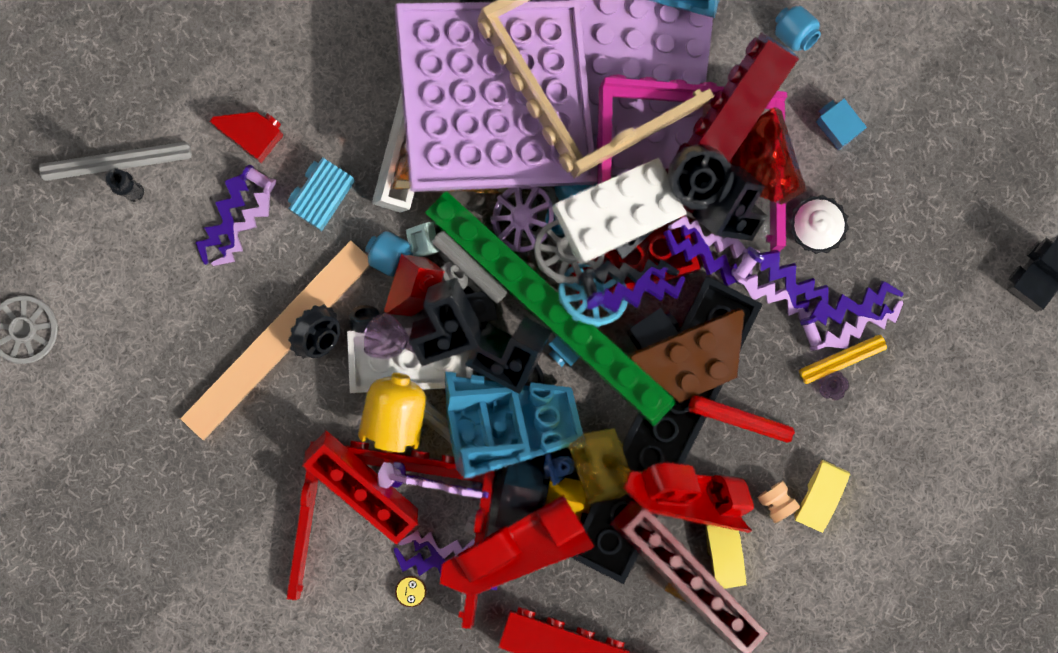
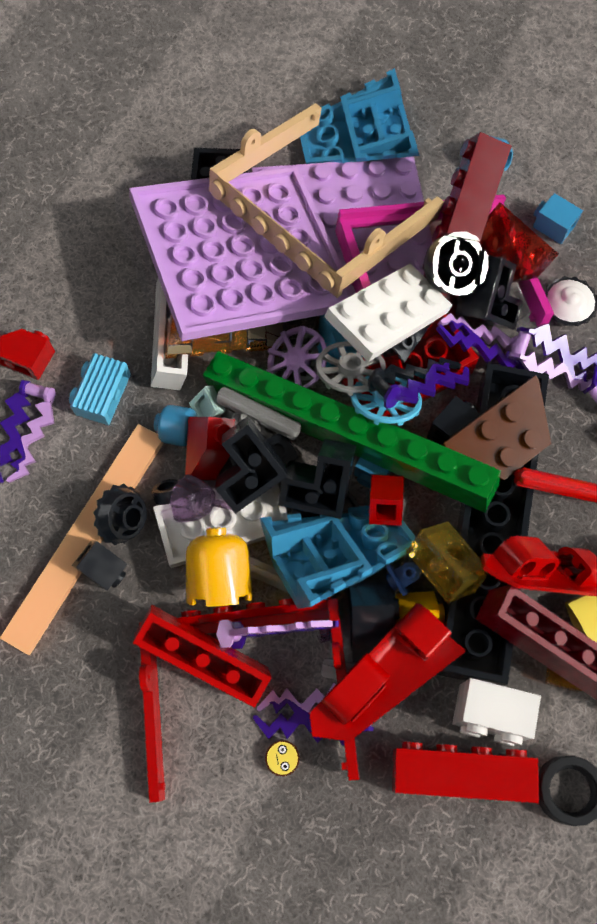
camera: 10 degrees left, 15 degrees down
(285, 376) = (100, 565): none -> black brick
(567, 388) = (386, 500): none -> red brick
(606, 604) = (497, 711): none -> white brick

